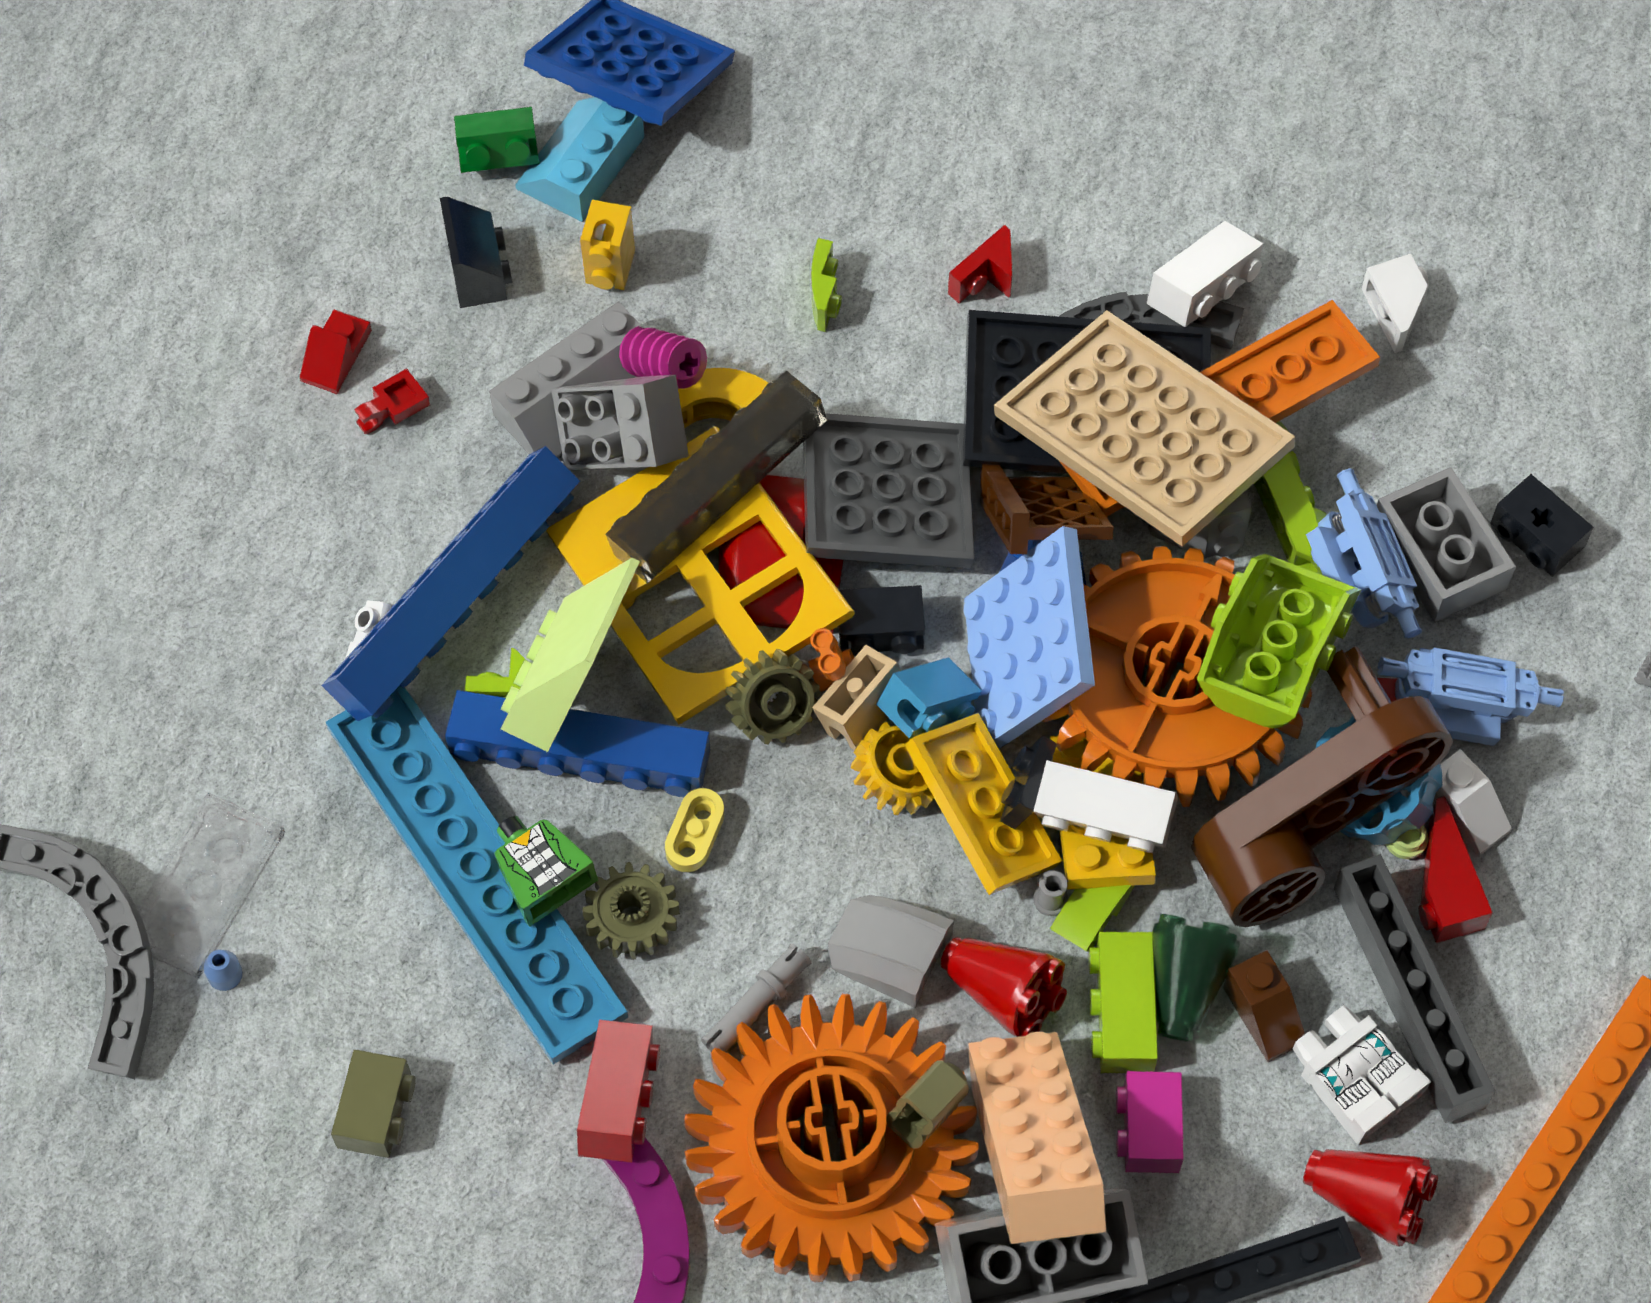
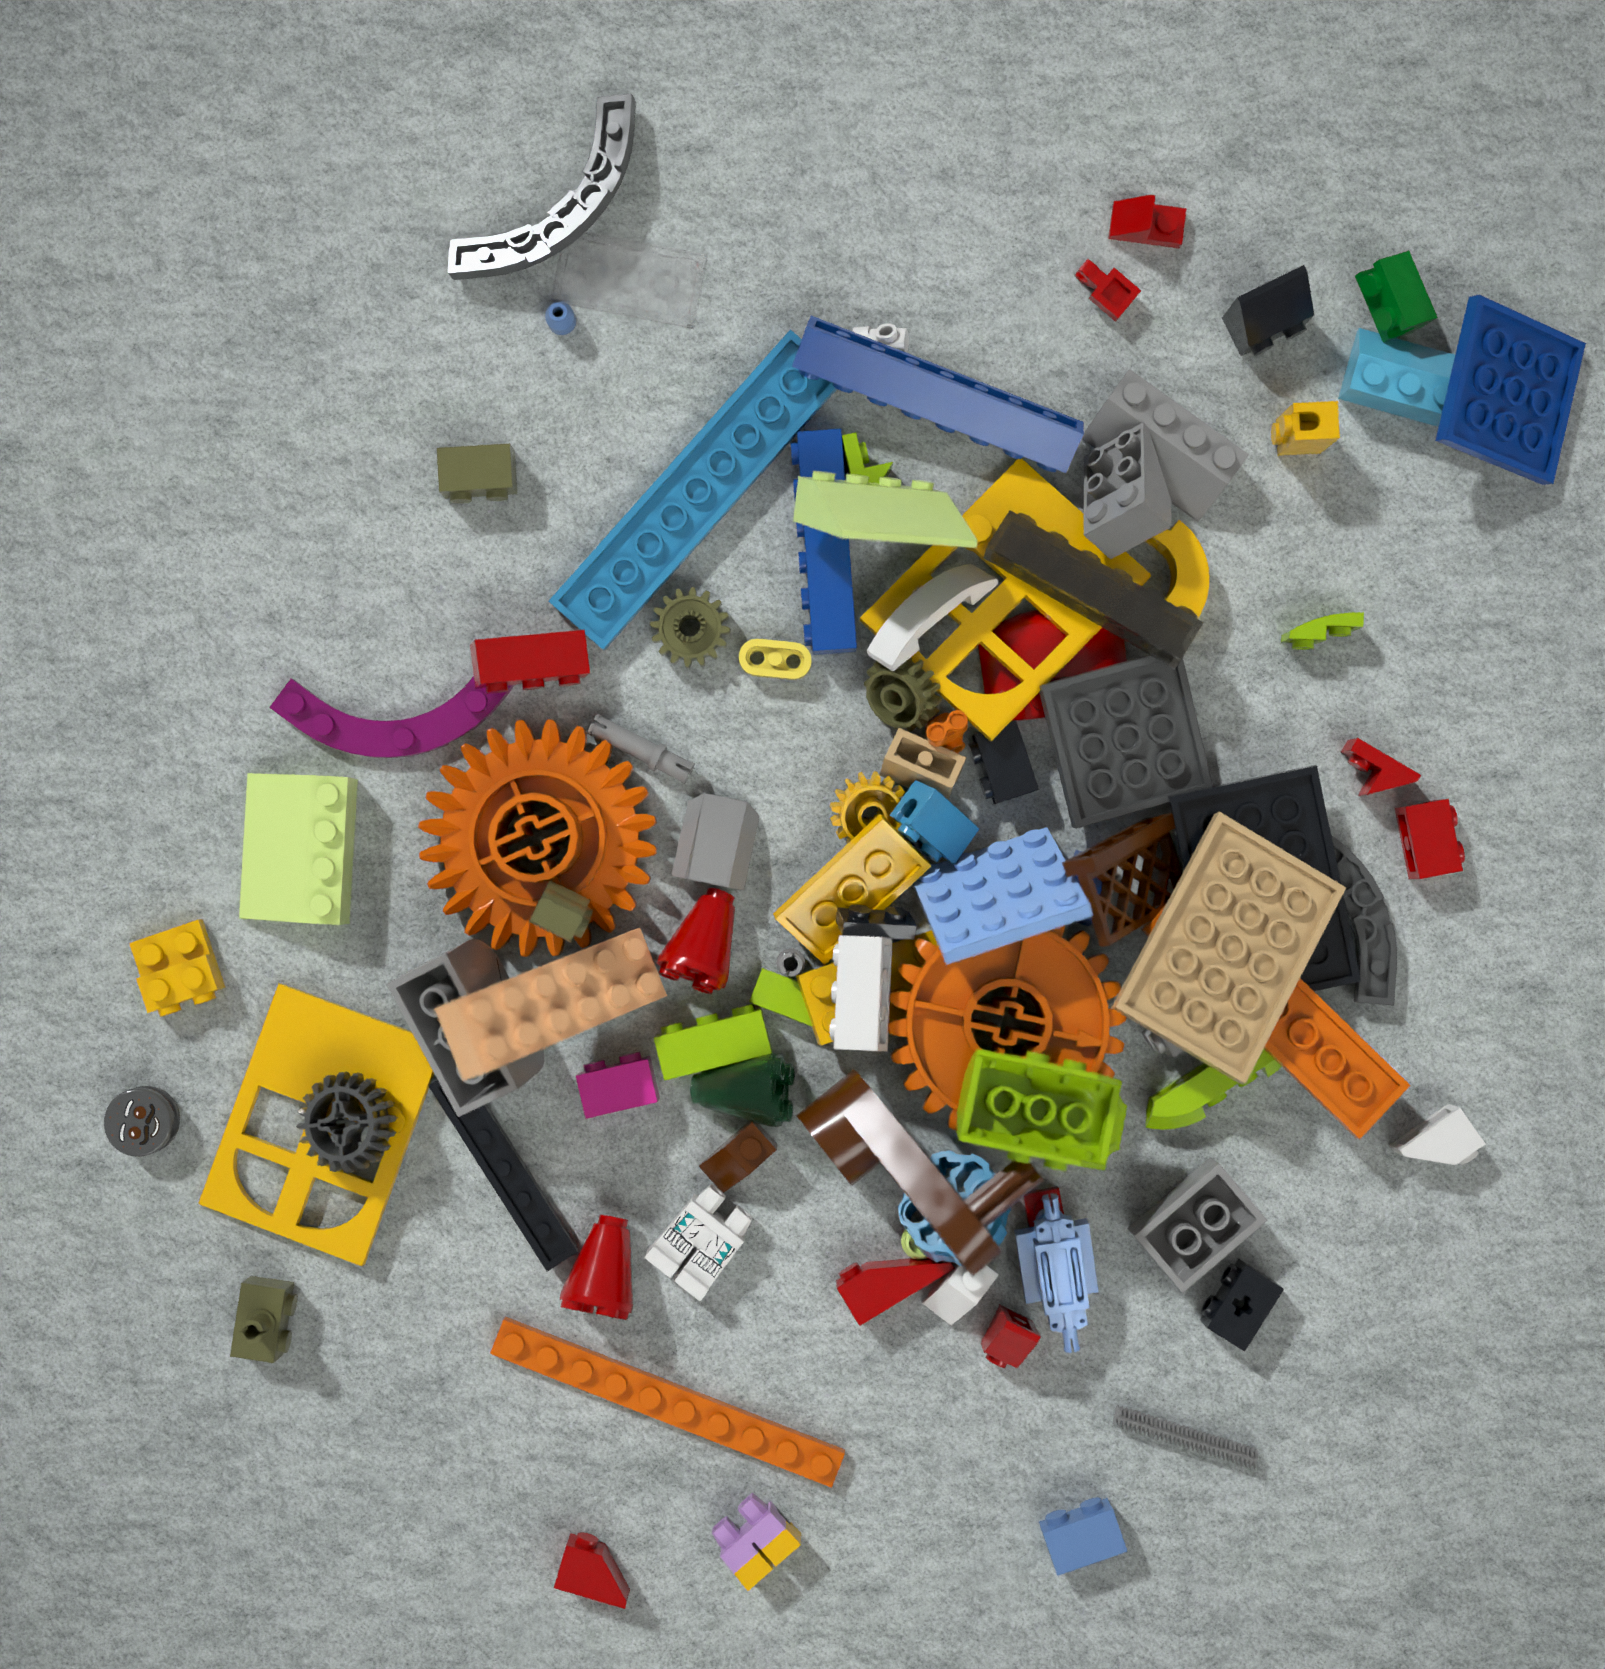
camera: 75 degrees right, 25 degrees up
(541, 867) = (698, 543): torso -> none
(663, 353) = (1198, 509): dark pink piece -> none
(692, 648) = (923, 609): none -> white slope
(1074, 238) = (1430, 839): none -> red brick
(1205, 274) = (1415, 966): white brick -> none
(1365, 553) = (1157, 1162): light blue piece -> none
(1413, 989) = (779, 1272): dark grey brick -> none
(1536, 760) = (1009, 1338): none -> red slope

